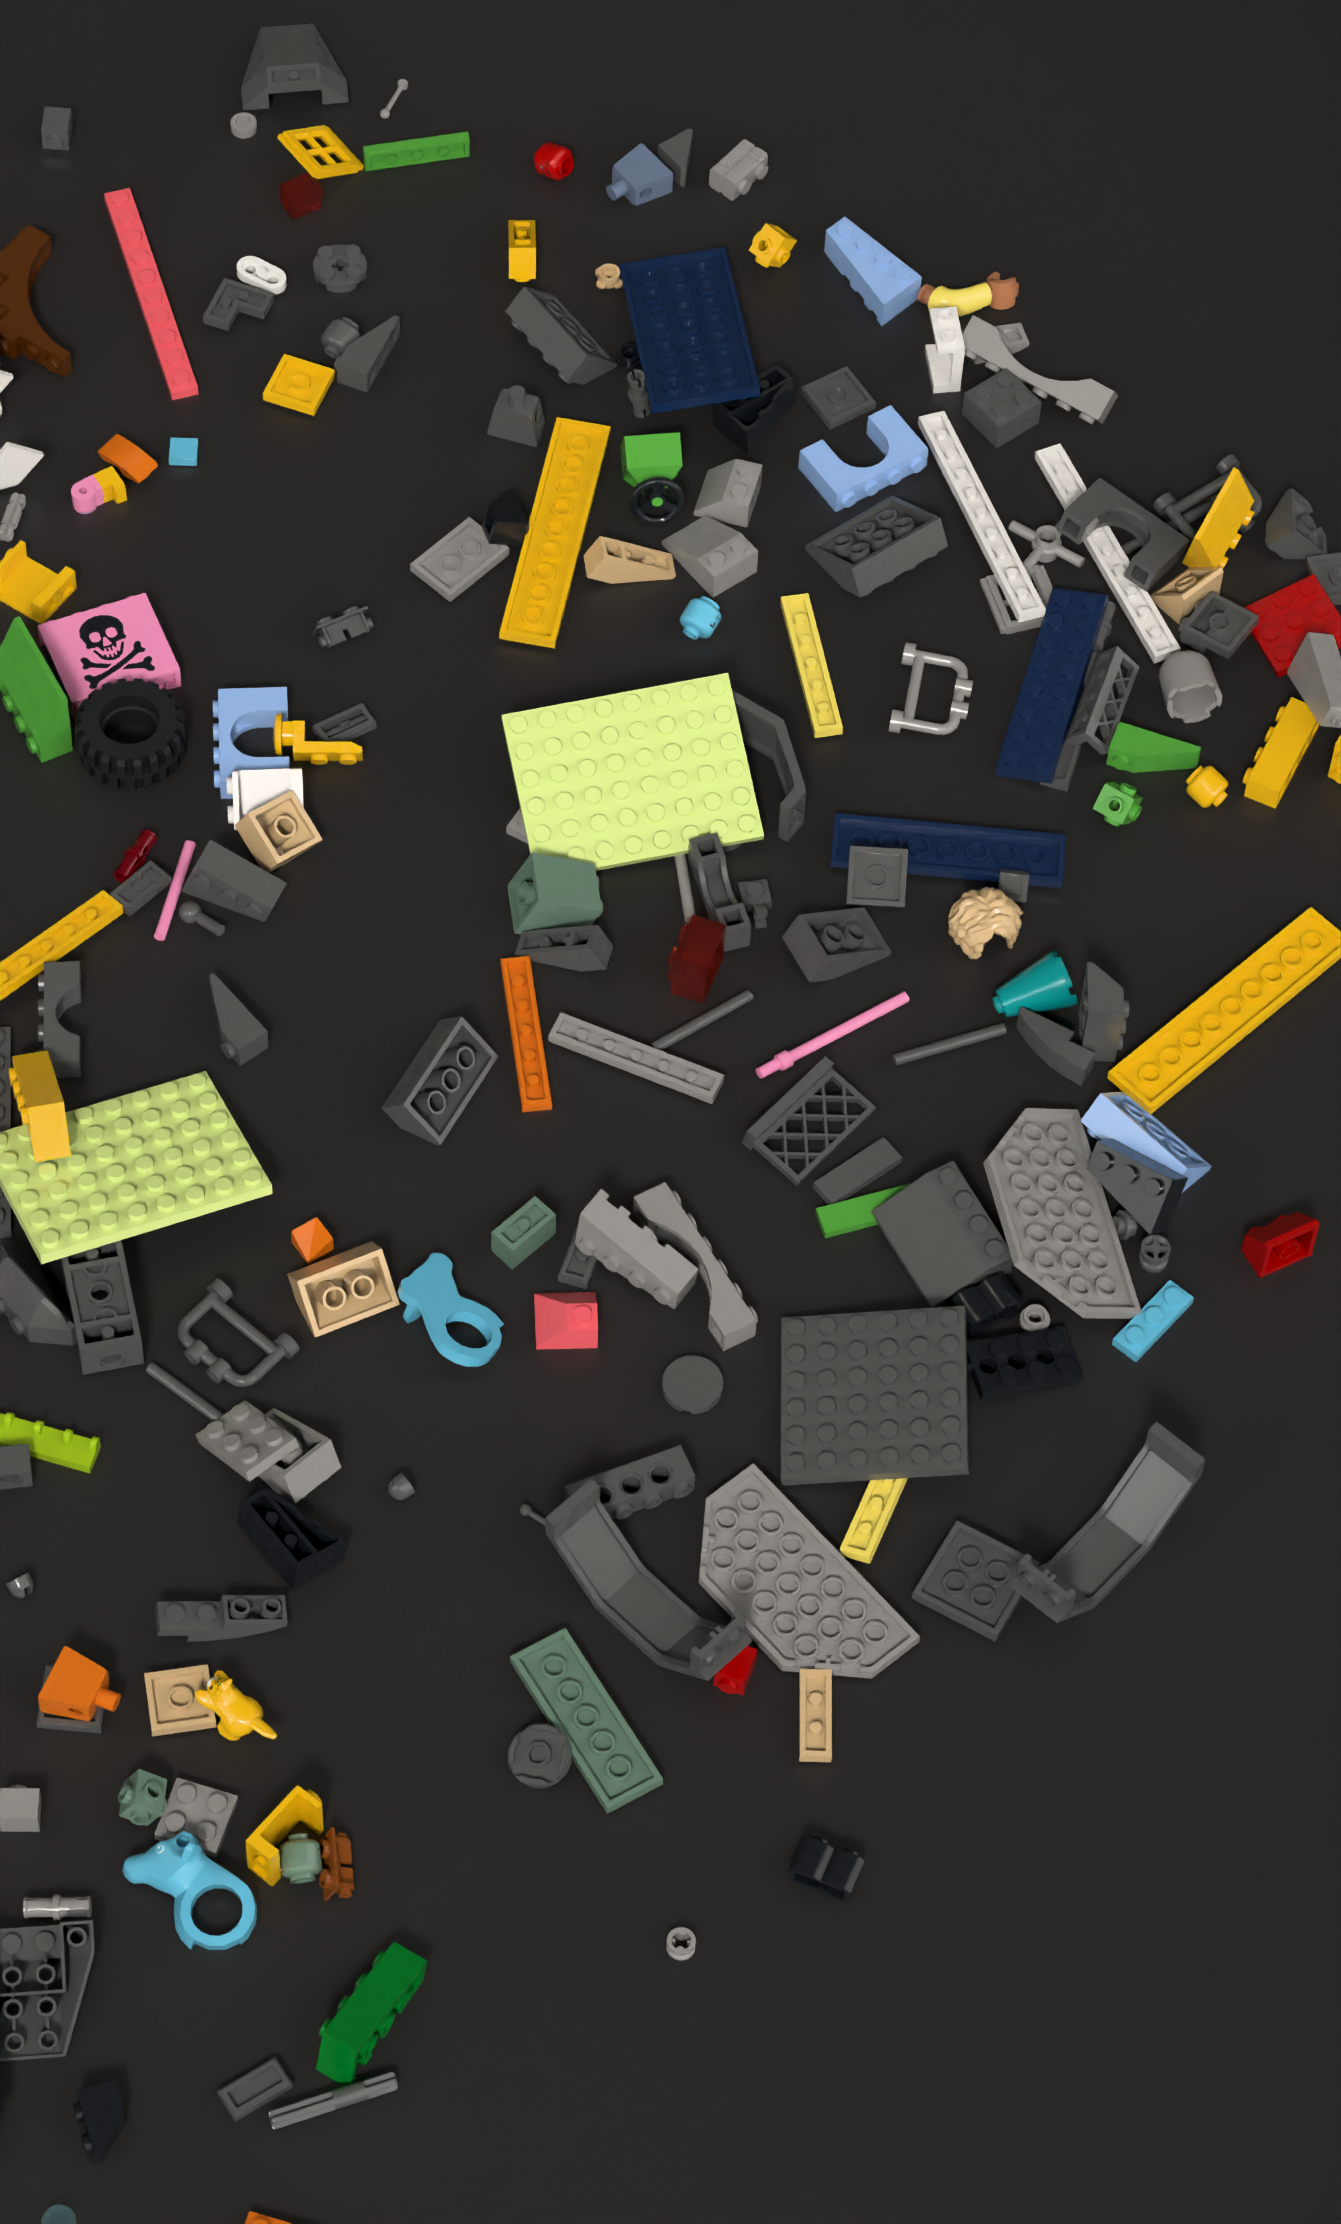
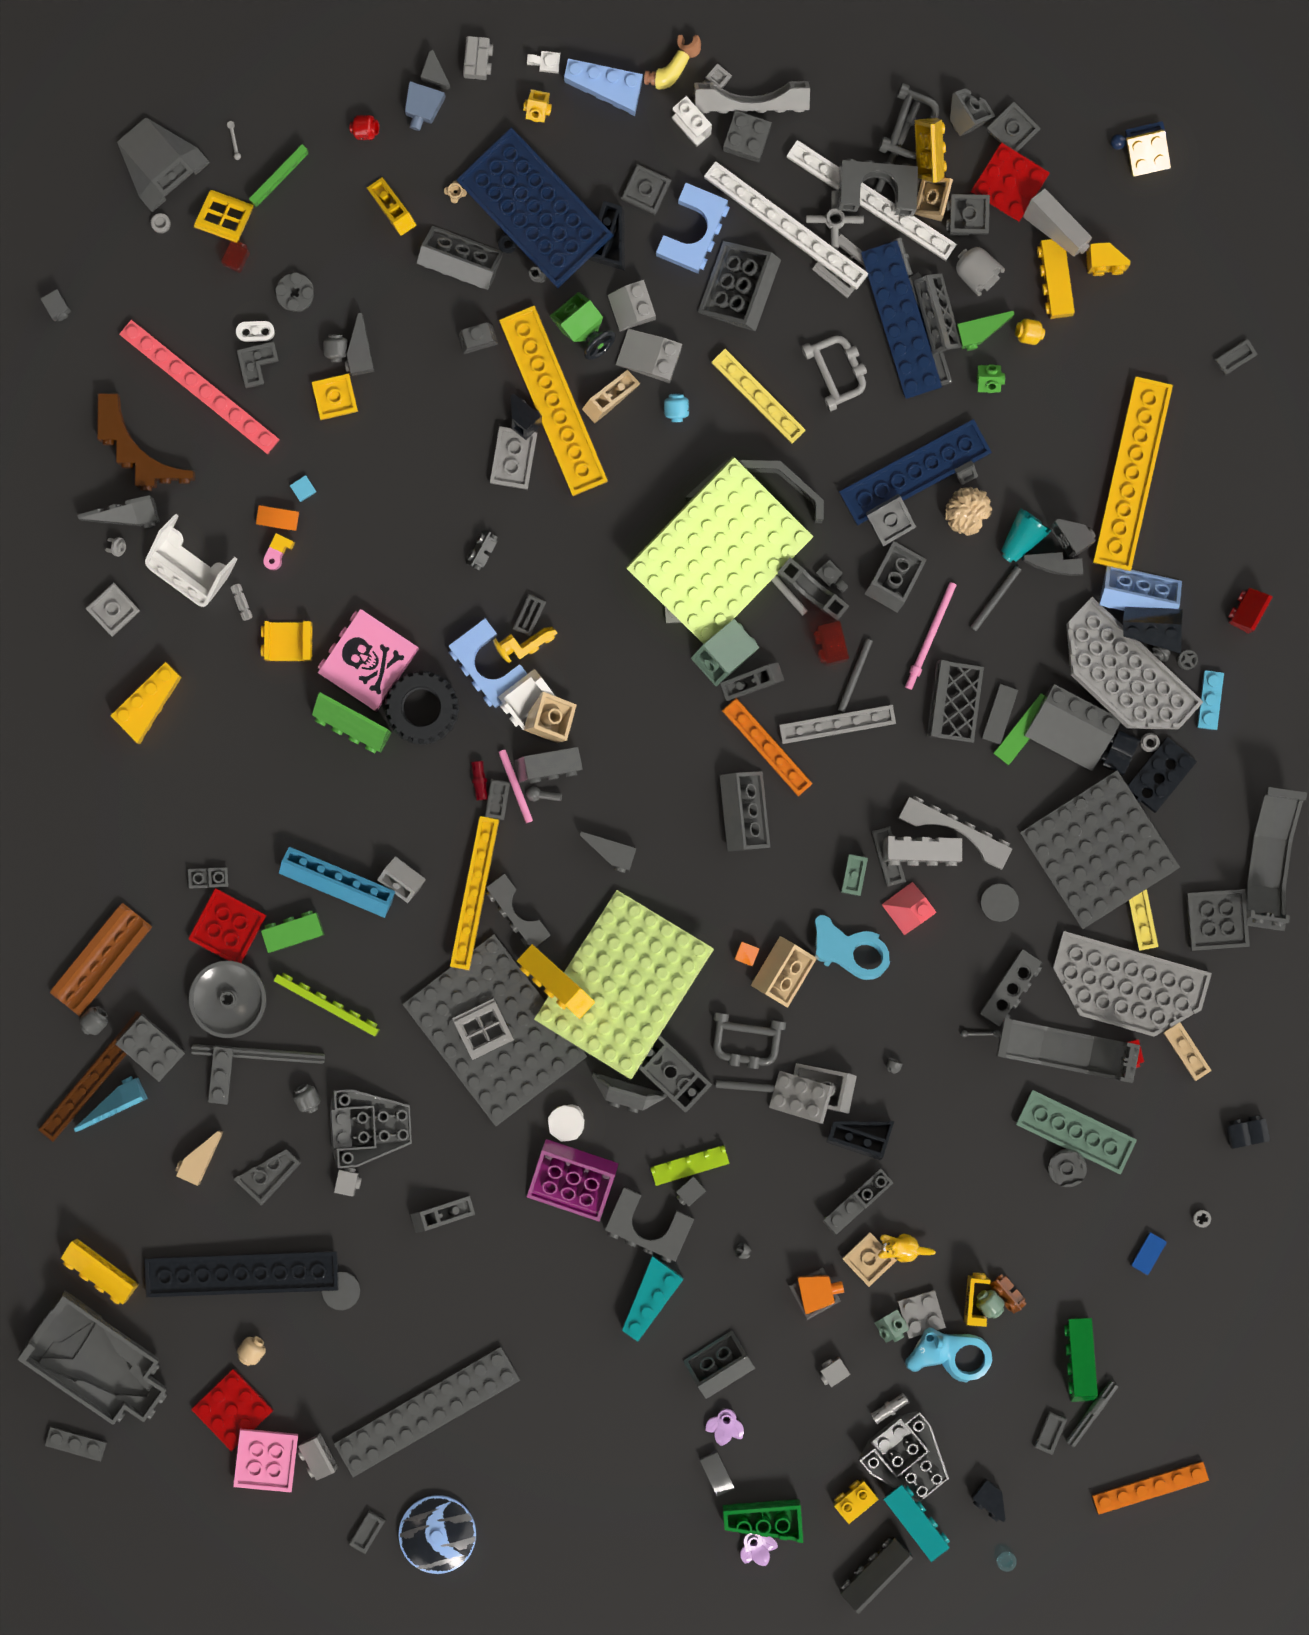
camera: 30 degrees left, 30 degrees up
(572, 1941) = (1148, 1253): none -> blue tile
(814, 219) = (548, 61): none -> white plate

